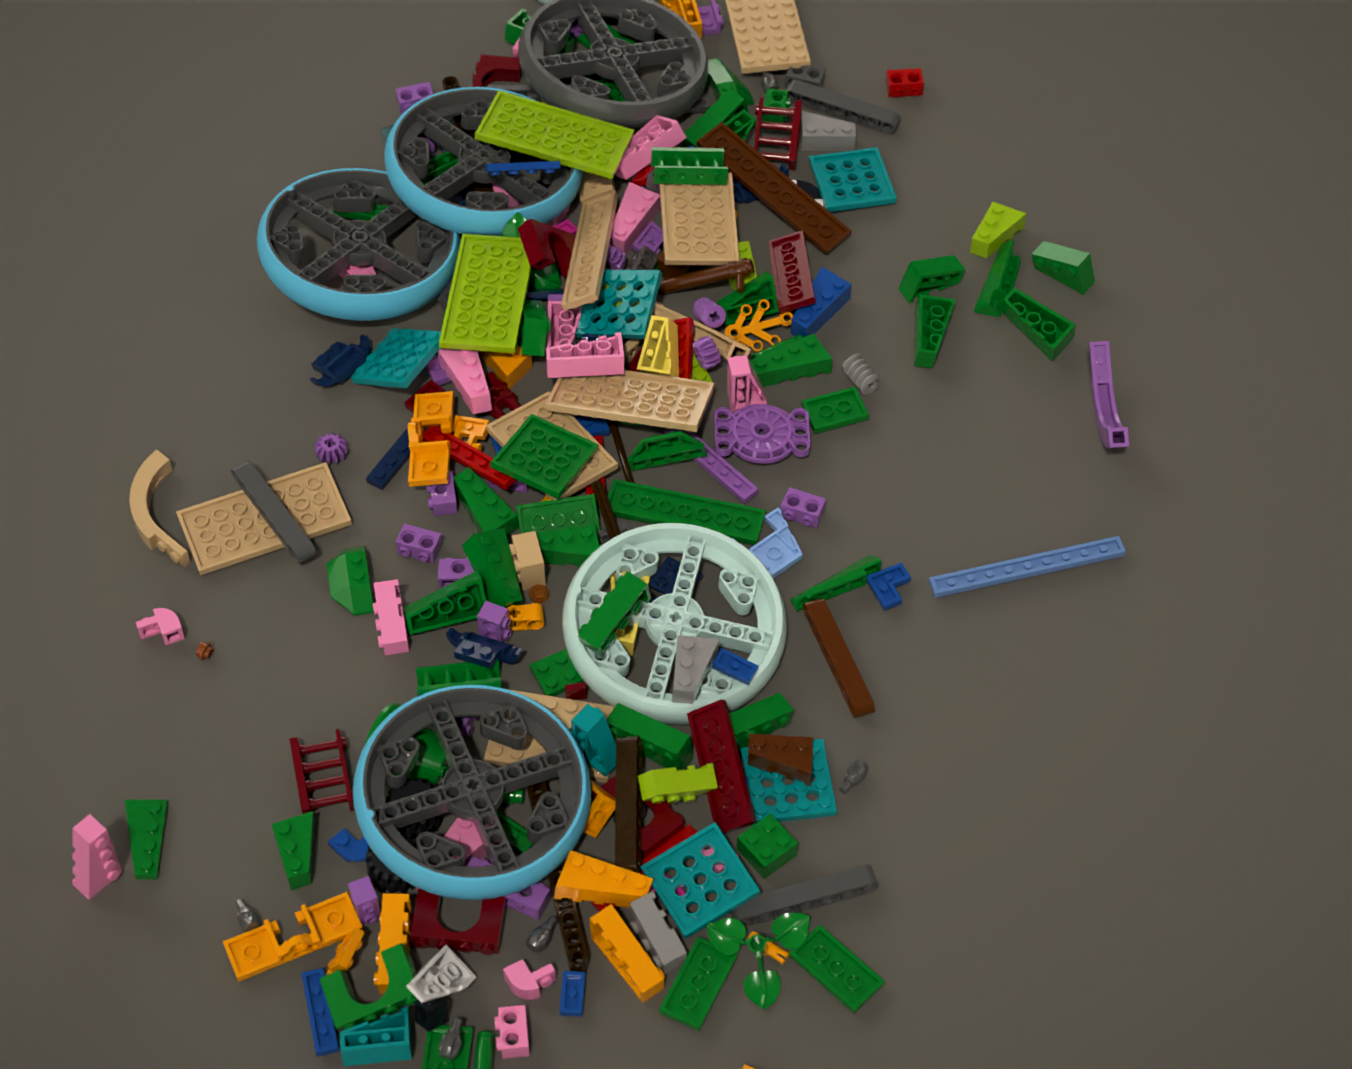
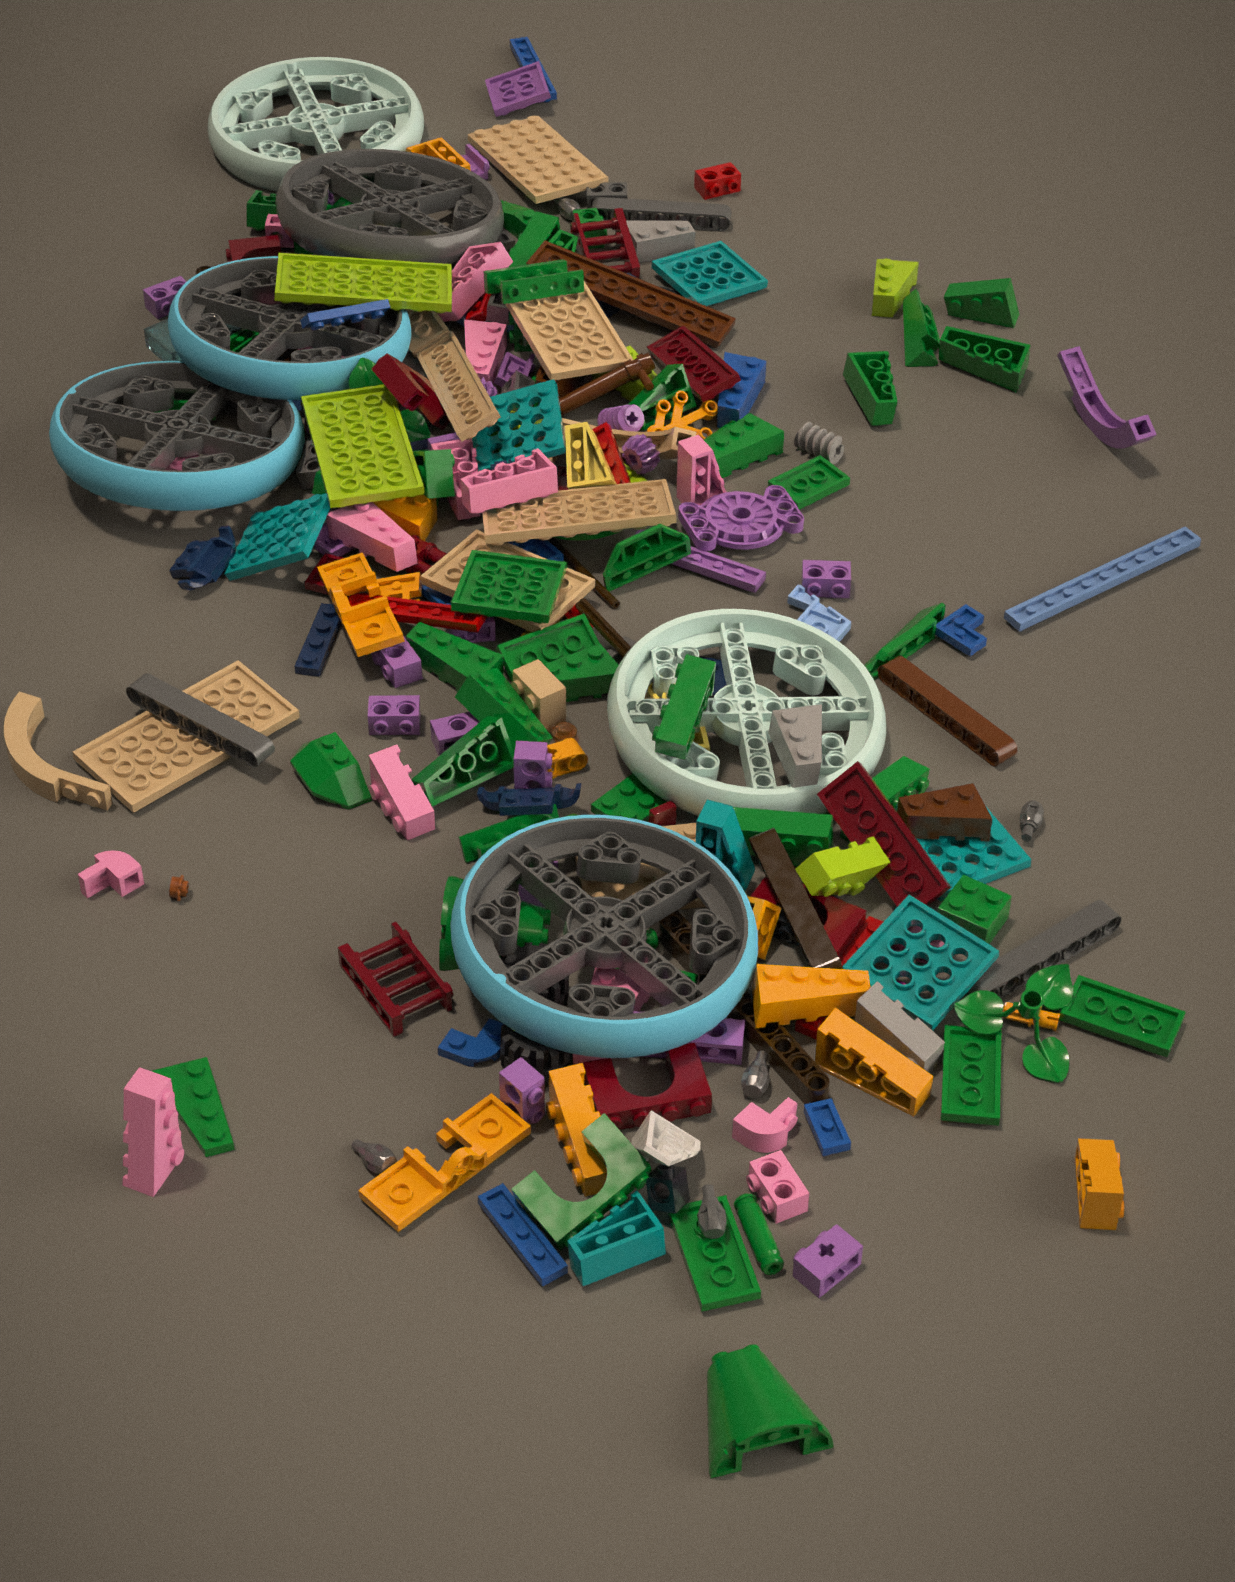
camera: 20 degrees left, 10 degrees down
(296, 848) = (402, 1065): green wedge -> none
(331, 448) = (237, 645): medium lavender gear -> none
(345, 951) = (526, 1154): light orange plate -> none
(666, 506) = (642, 614): green plate -> none
(735, 666) = (848, 733): blue plate -> none
(929, 275) = (844, 337): green wedge -> none

